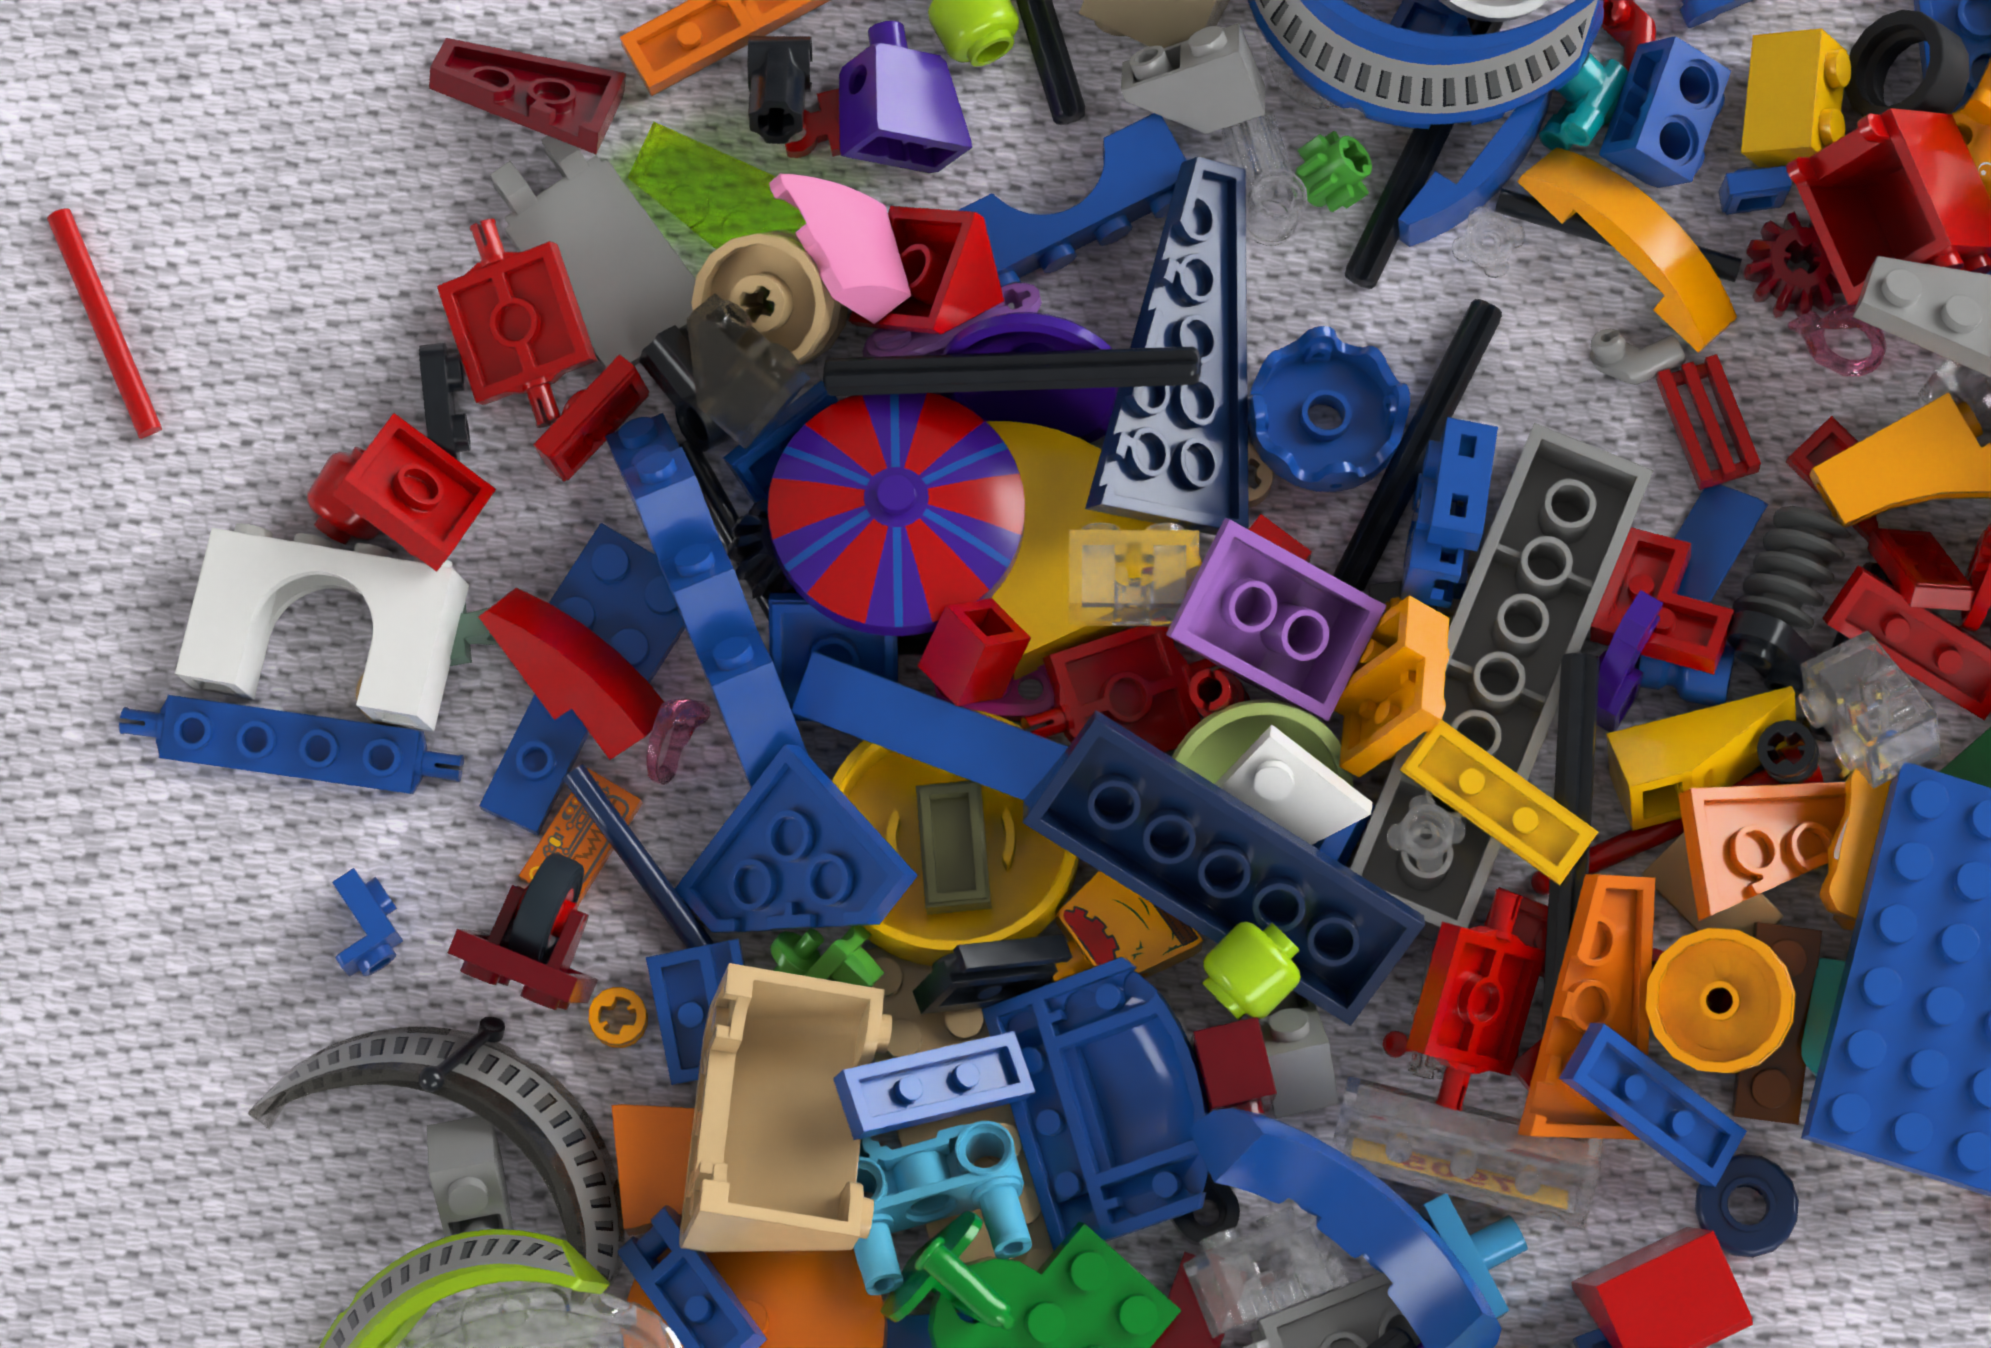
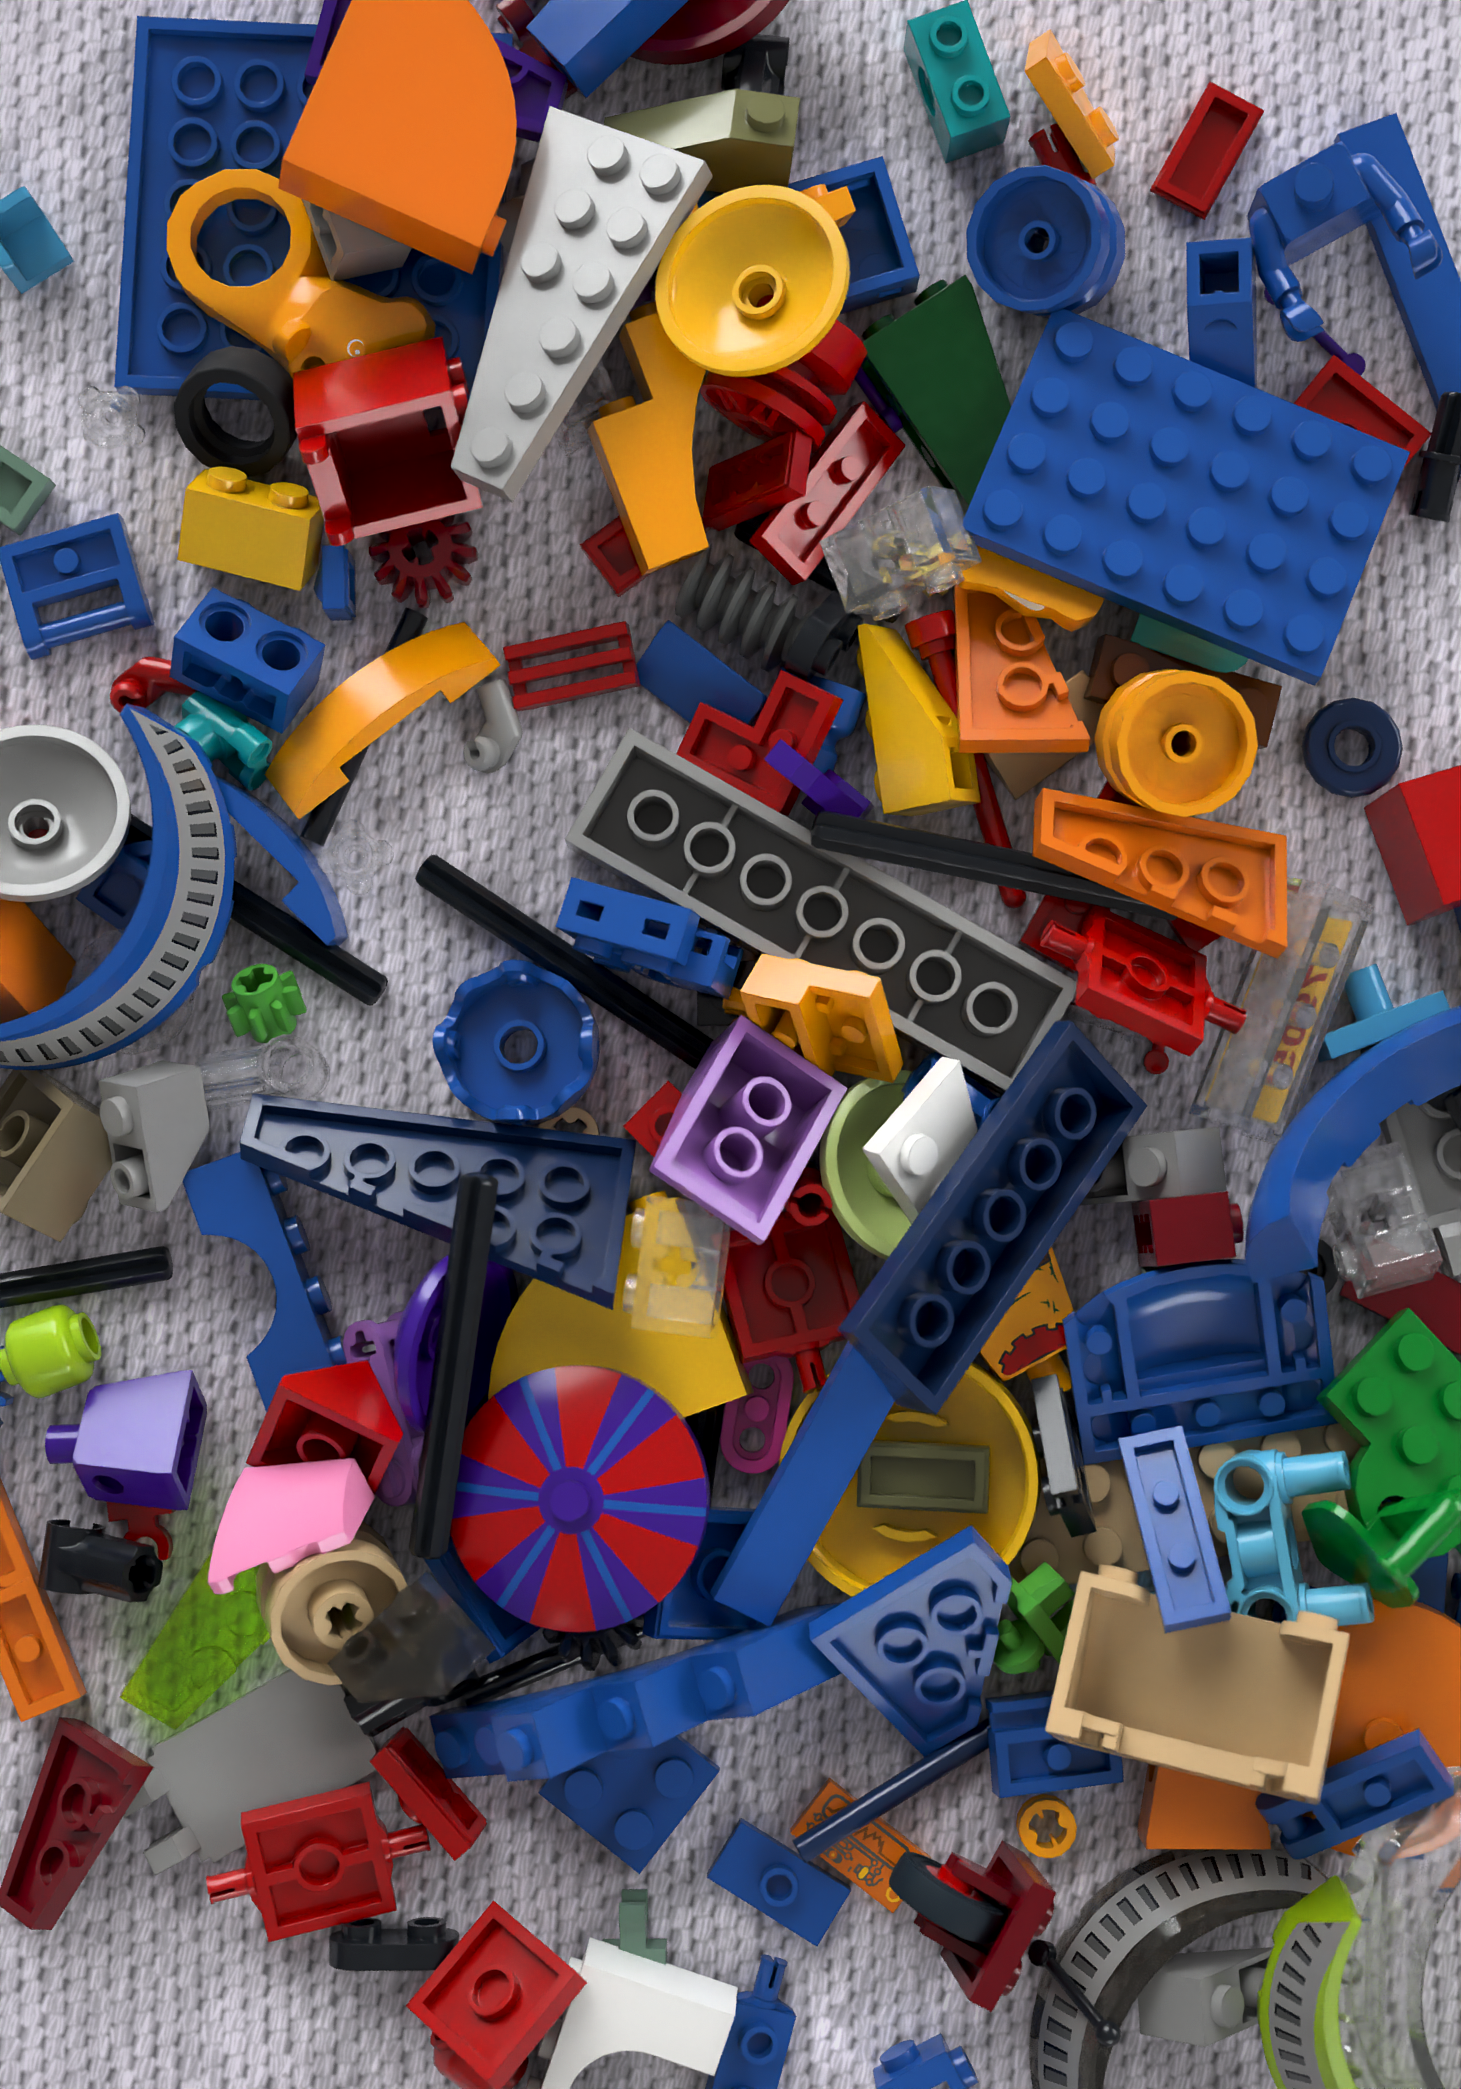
camera: 85 degrees left, 10 degrees up
(574, 670) = (695, 1840): red slope -> none
(685, 717) = (756, 1740): clear pink piece -> none
(974, 652) = (737, 1436): red brick -> none
(1251, 970) = (1100, 1200): lime head -> none
(1425, 814) = (997, 1007): clear plate -> none
(1499, 801) = (955, 929): yellow tile -> none
(1652, 1104) = (1262, 824): blue plate -> none
(1791, 733) = (906, 633): black bush -> none
(1812, 330) = (492, 519): clear pink piece -> none

